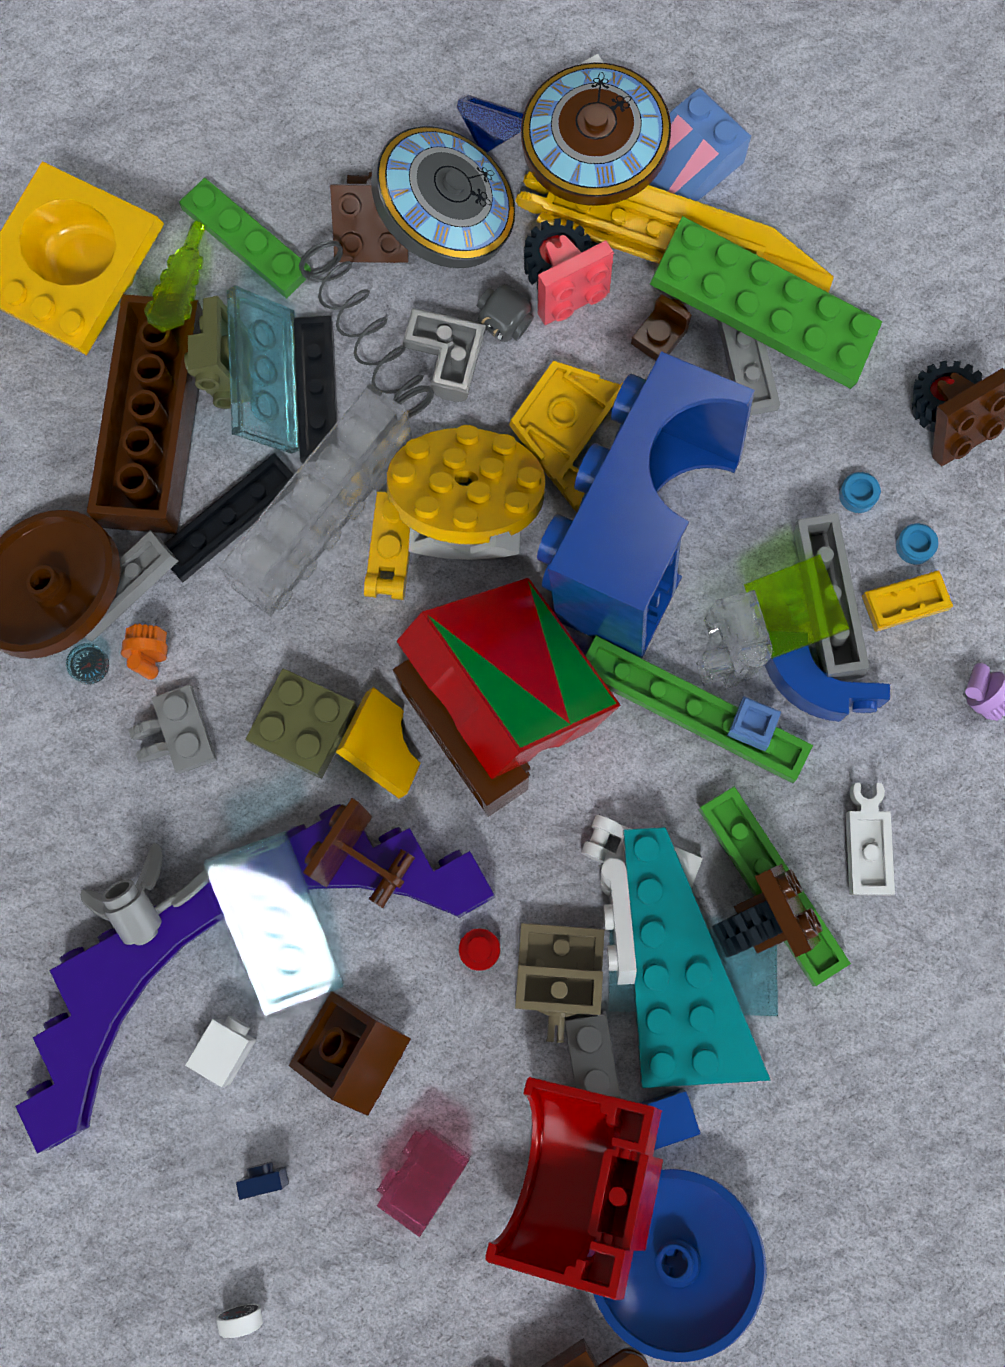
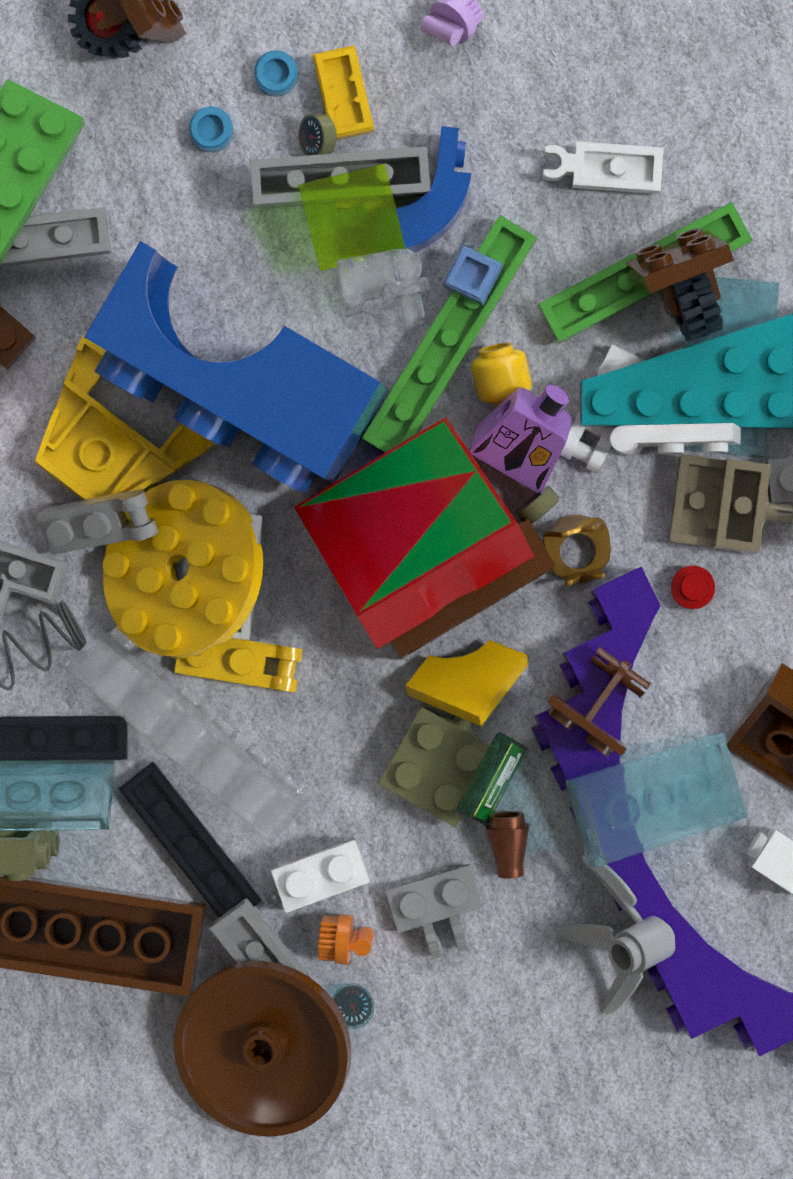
camera: 90 degrees left, 10 degrees up
(200, 625) = (320, 875): none -> white brick
(235, 791) = (508, 842): none -> copper cone
(288, 767) = (492, 778): none -> tile
(502, 413) = (96, 522): none -> light grey plate
(530, 845) = (579, 524): none -> pearl gold piece
(546, 798) = (538, 505): none -> olive tile
(608, 777) = (524, 435): none -> medium lavender torso
(663, 756) = (500, 372): none -> yellow head
(868, 579) = (317, 135): none -> tile

